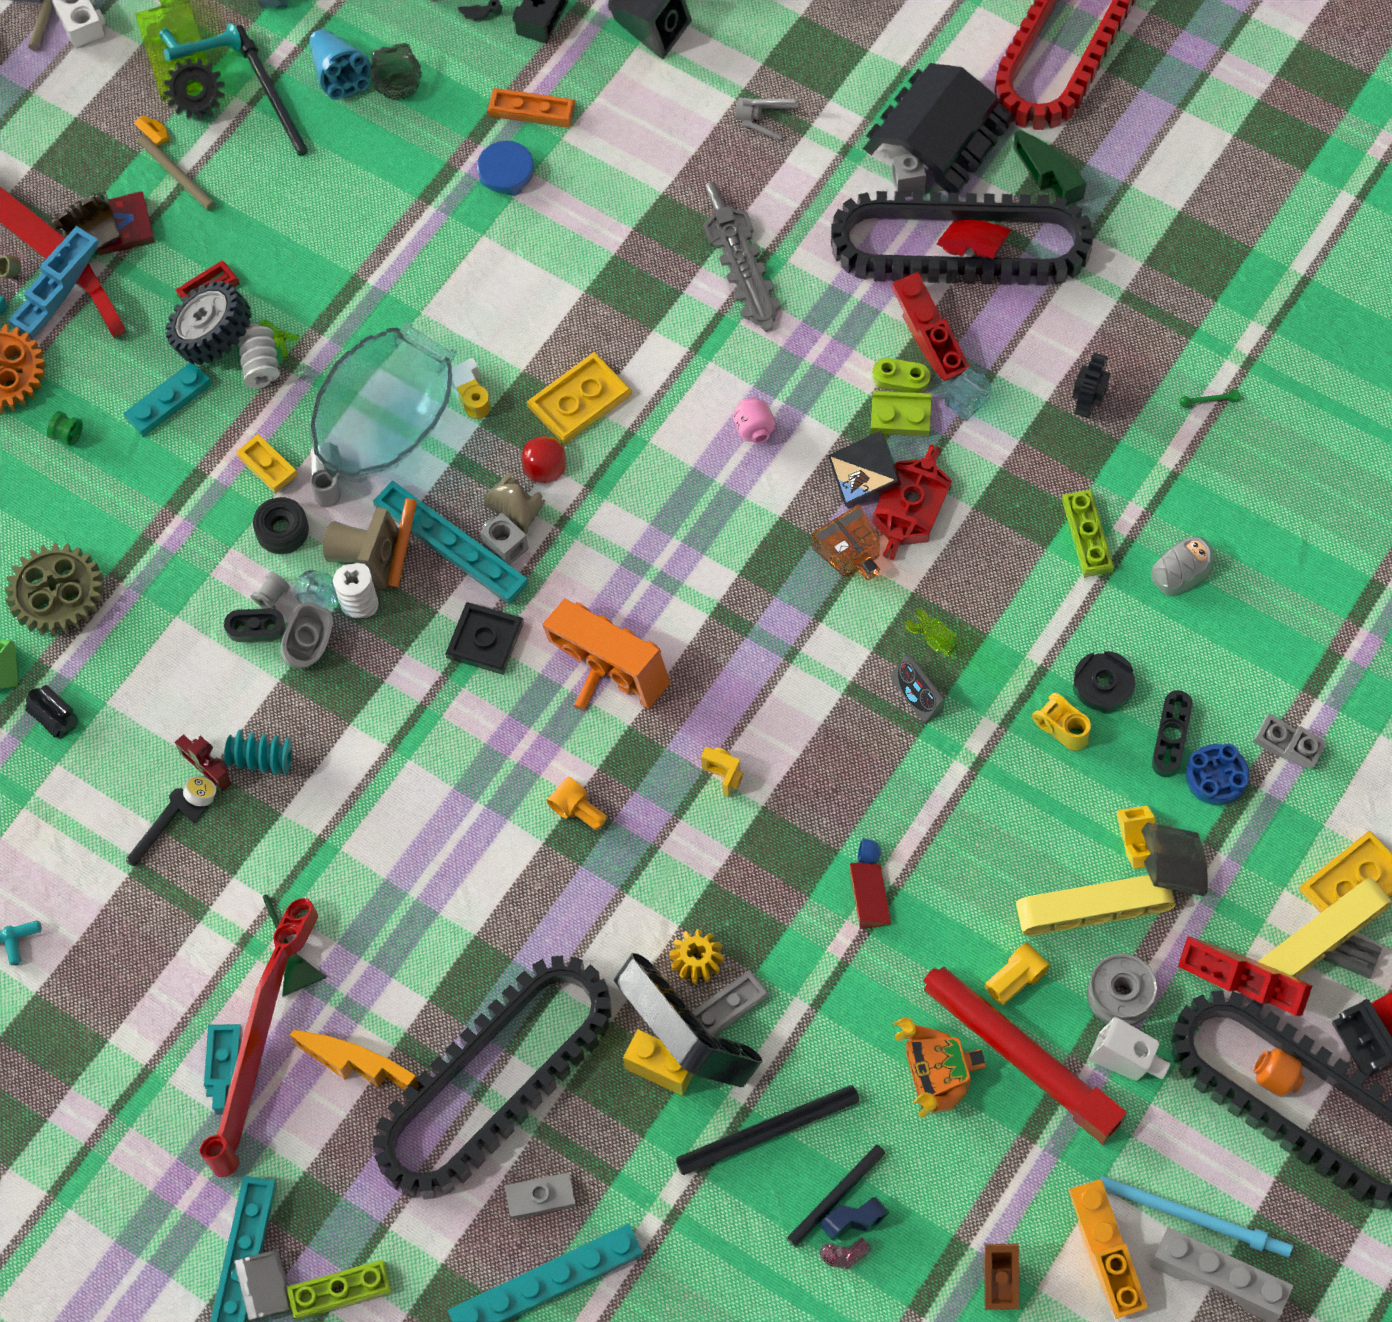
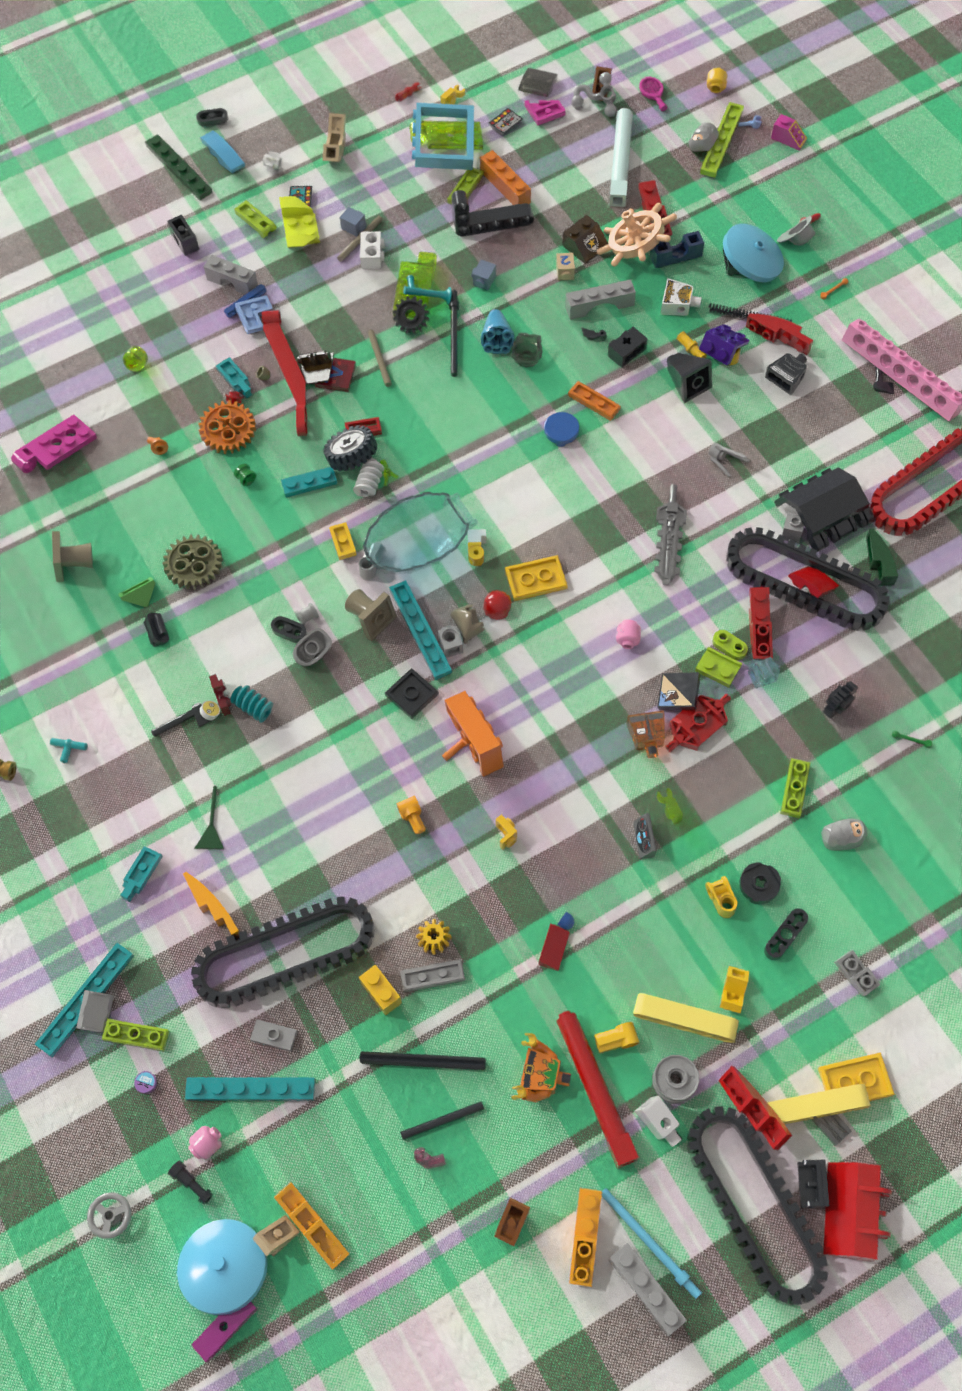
camera: 25 degrees right, 0 degrees up
(57, 279) = (285, 389): dark azure slope -> none
(153, 129) = (379, 330): light orange piece -> none
(220, 1149) = (112, 922): red piece -> none
(280, 541) = (332, 569): black tyre -> none
(315, 588) = (331, 624): clear light blue head -> none
(356, 591) = (351, 634): white piece -> none
(401, 543) = (392, 618): orange bar -> none
(680, 1029) = (397, 977): black beam -> none
(848, 1218) = (451, 1143): dark blue piece -> none
(1175, 859) = (748, 1014): clear smoke slope -> none
(1217, 774) = (802, 972): blue tile -> none
(1278, 1072) = (746, 1178): orange head -> none

